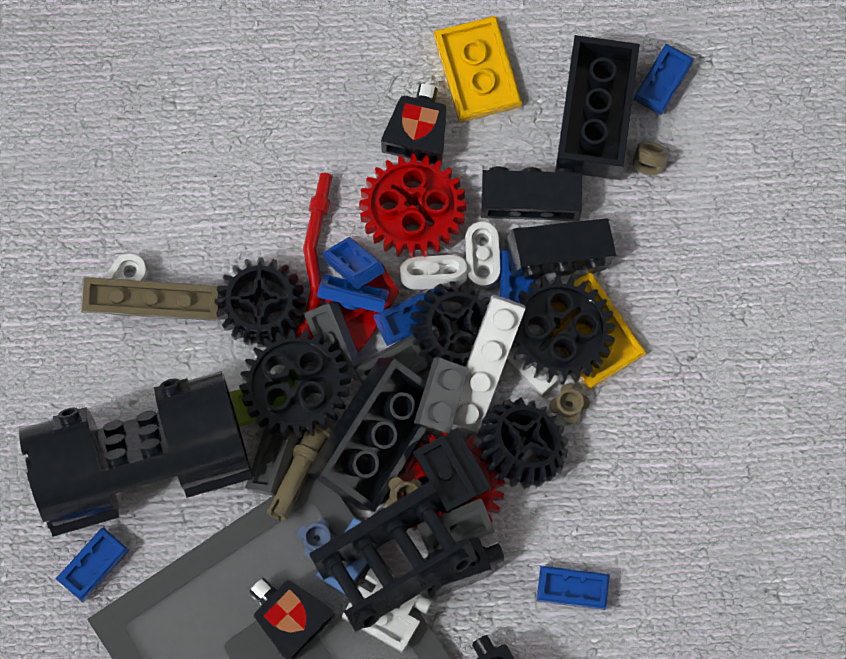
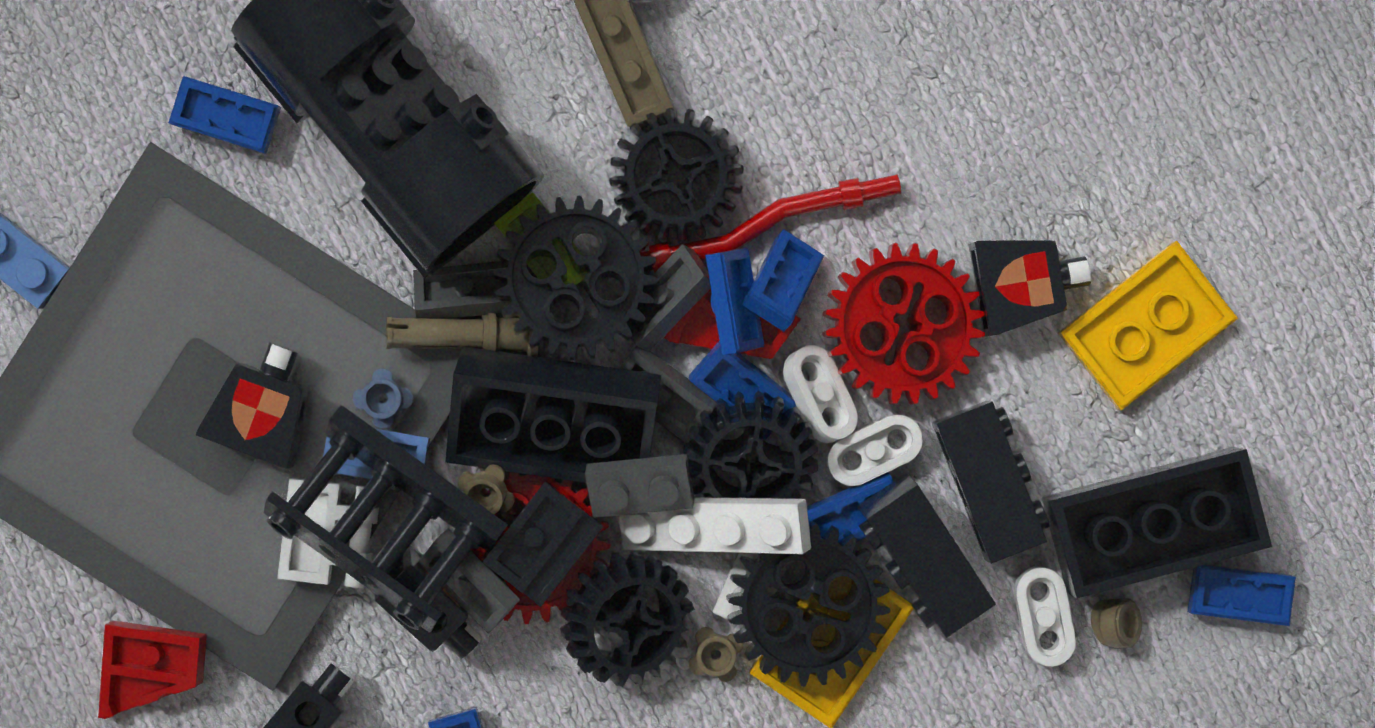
camera: 70 degrees right, 15 degrees up
(629, 194) = (1043, 615): none -> white plate

